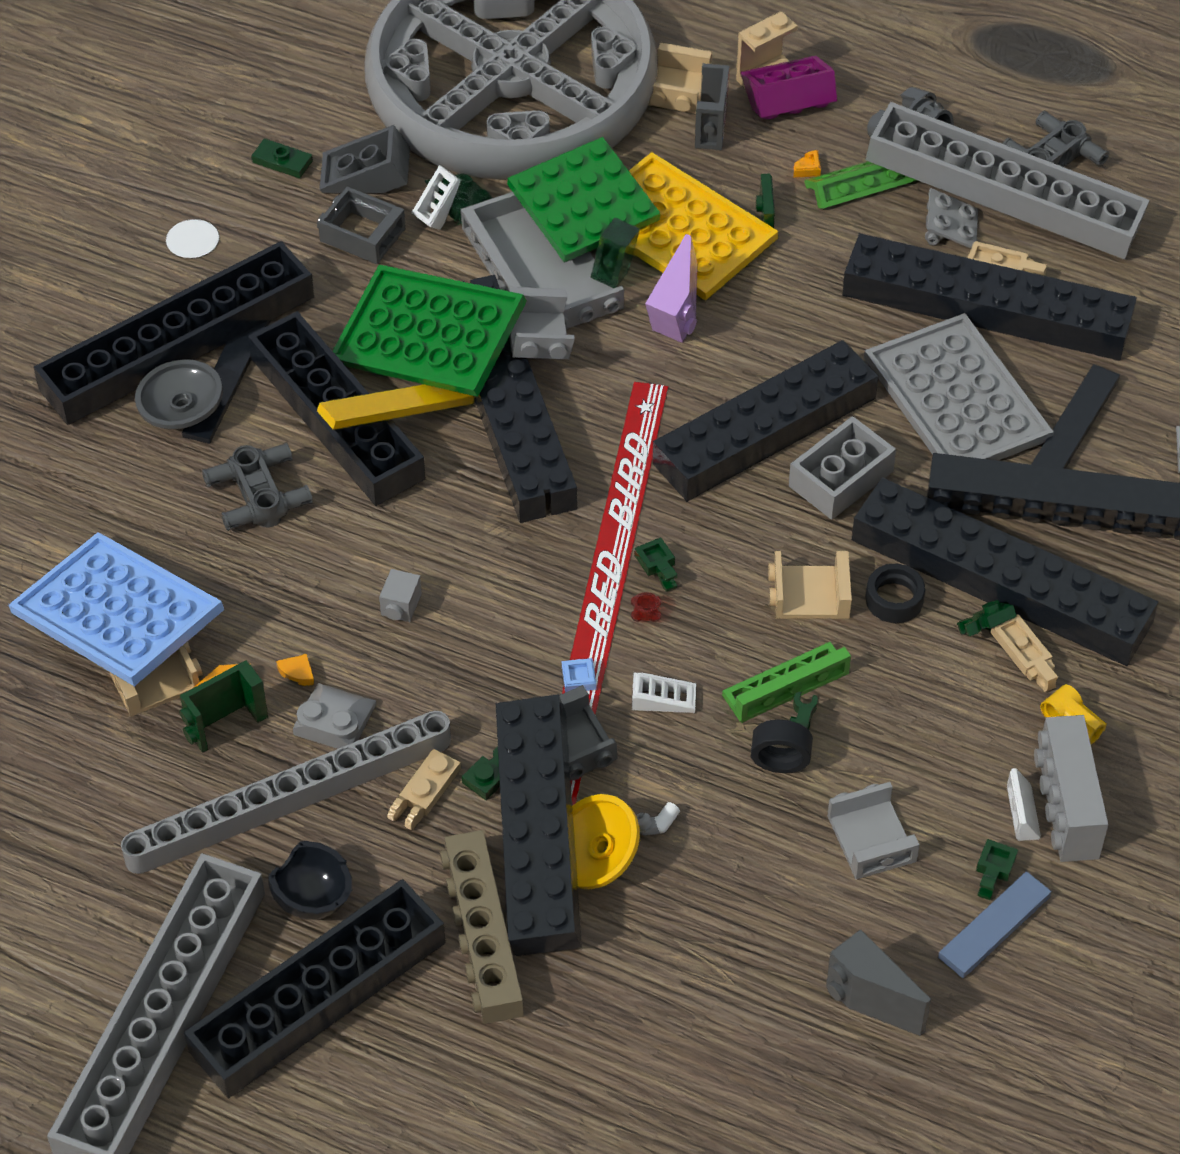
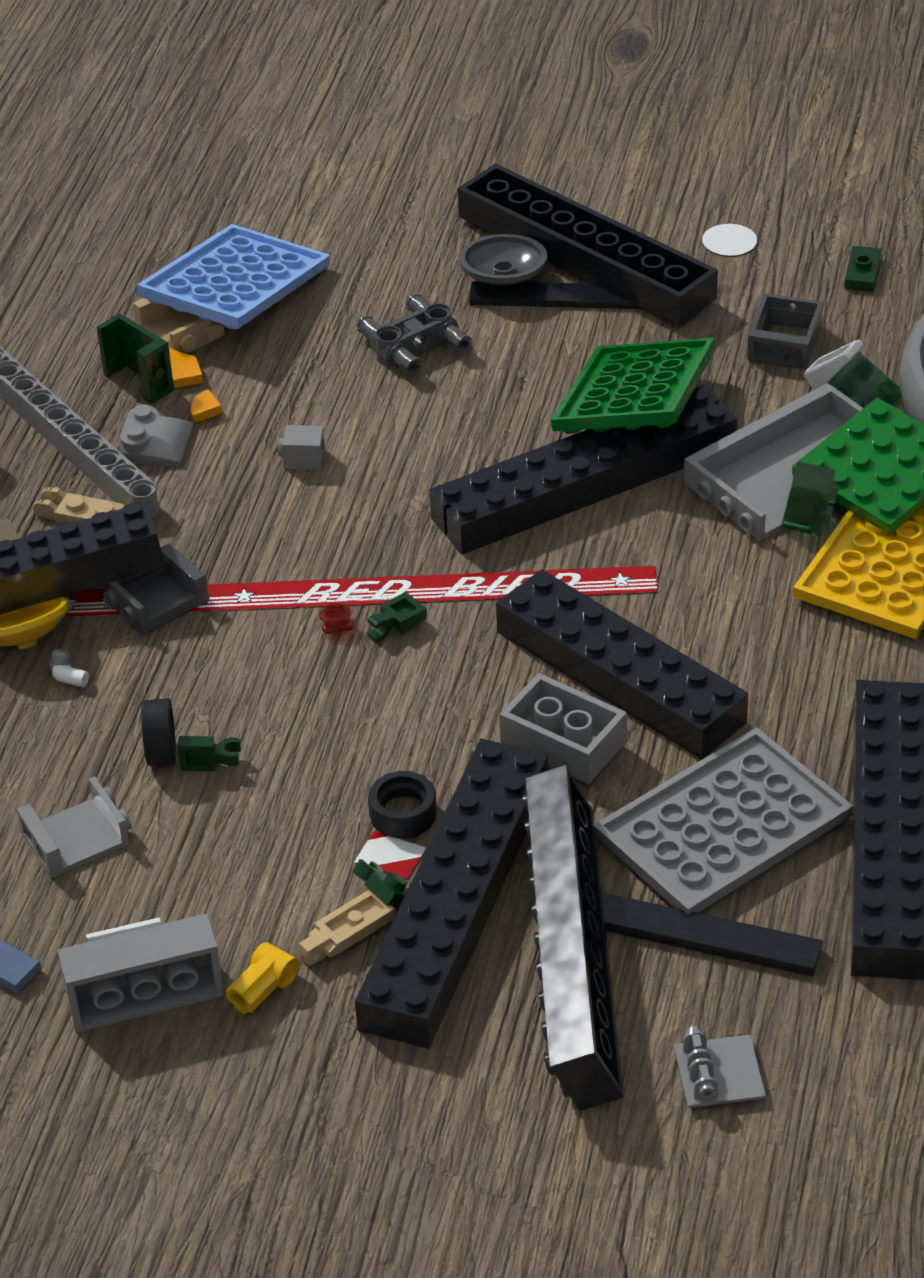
camera: 80 degrees right, 10 degrees down
(310, 373) = (522, 358): black brick -> none
(367, 164) = (875, 320): dark grey slope -> none
(389, 405) = (509, 366): yellow tile -> none
(541, 325) = (667, 456): light grey panel -> none
(578, 673) = (238, 587): light blue tile -> none
(662, 703) = (225, 646): white slope -> none
(673, 299) = (767, 550): lavender slope -> none
(784, 687) = (263, 745): bright green fence -> none
(811, 590) = (394, 733): tan panel -> none
(939, 616) = (391, 854): none -> white sticker
(995, 863) = (42, 935): dark green plate -> none

